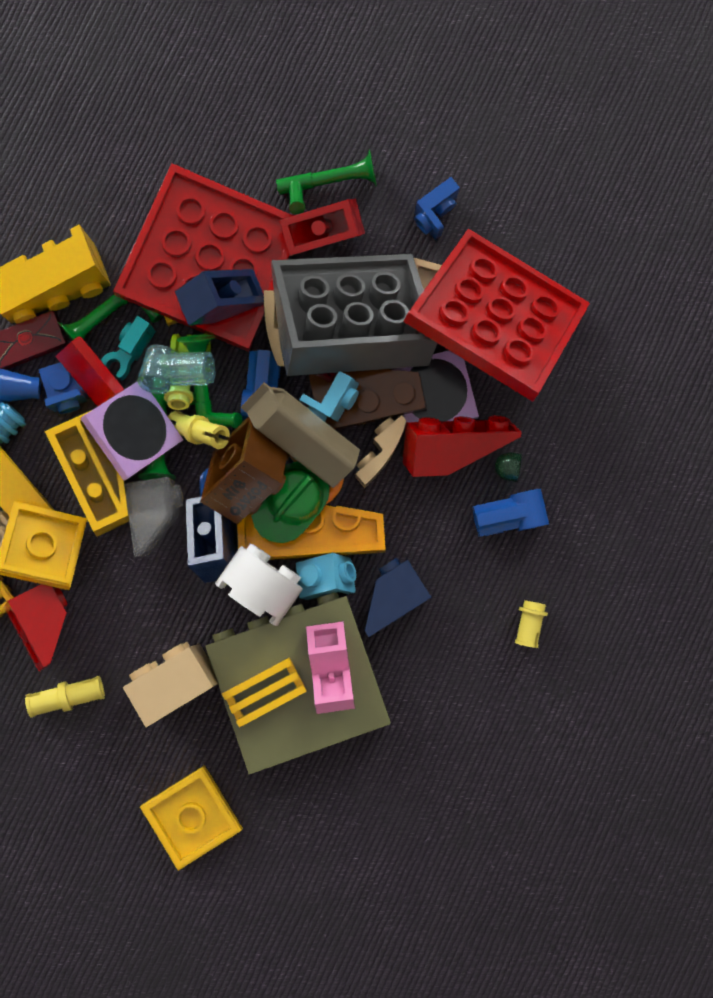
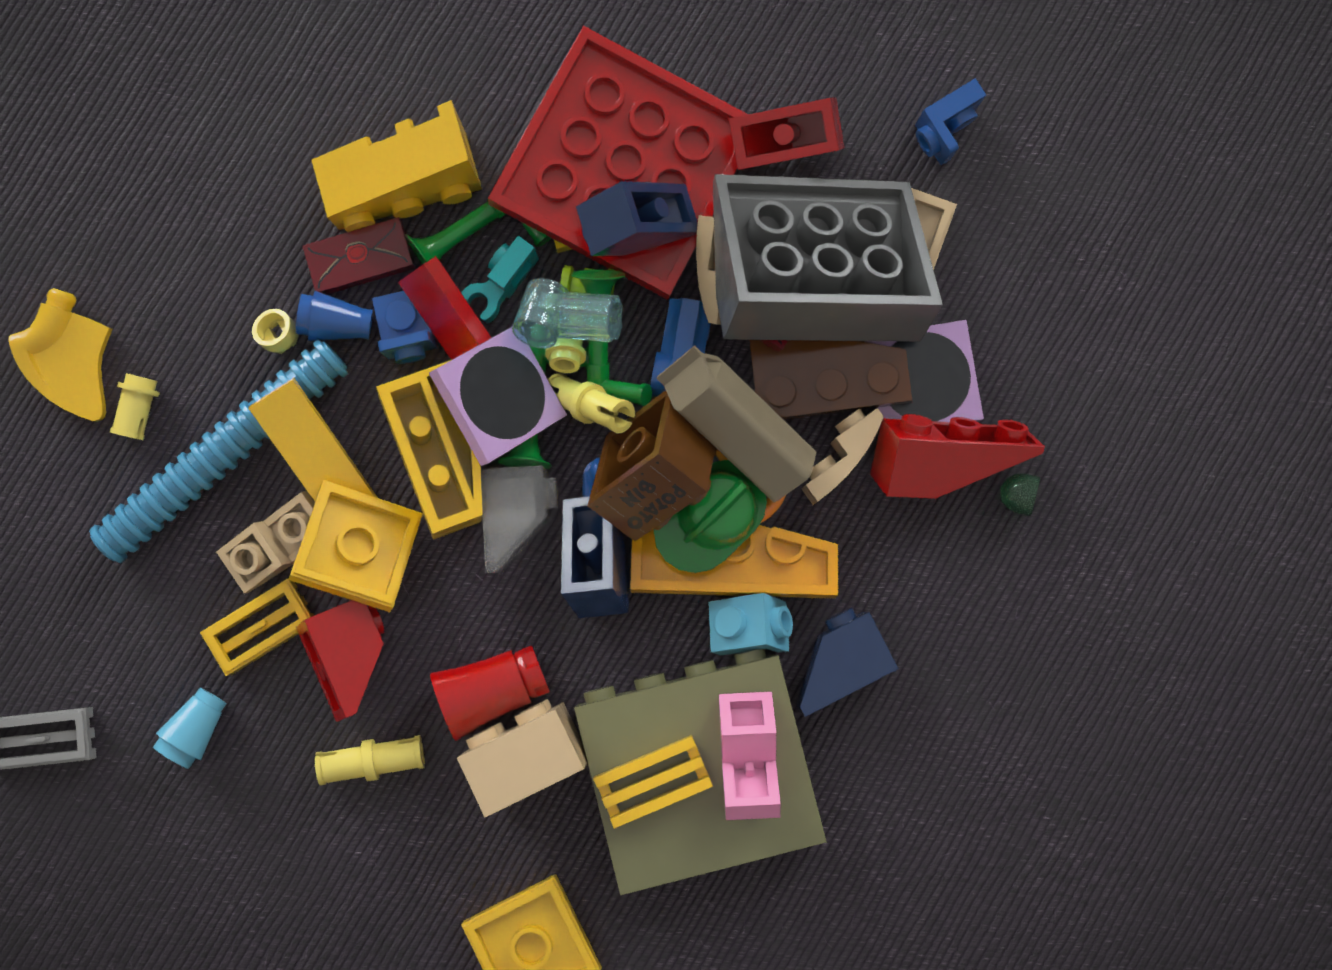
camera: 10 degrees right, 0 degrees up
(143, 638) = (487, 689): none -> red plant
(259, 584) = (661, 630): white brick -> none
(296, 184) = (755, 70): green piece -> none
(339, 397) = (794, 374): medium azure bracket -> none
(498, 314) = (1028, 279): red plate -> none
(518, 512) = (1028, 559): blue piece -> none
(530, 623) = (1032, 717): light yellow pin -> none

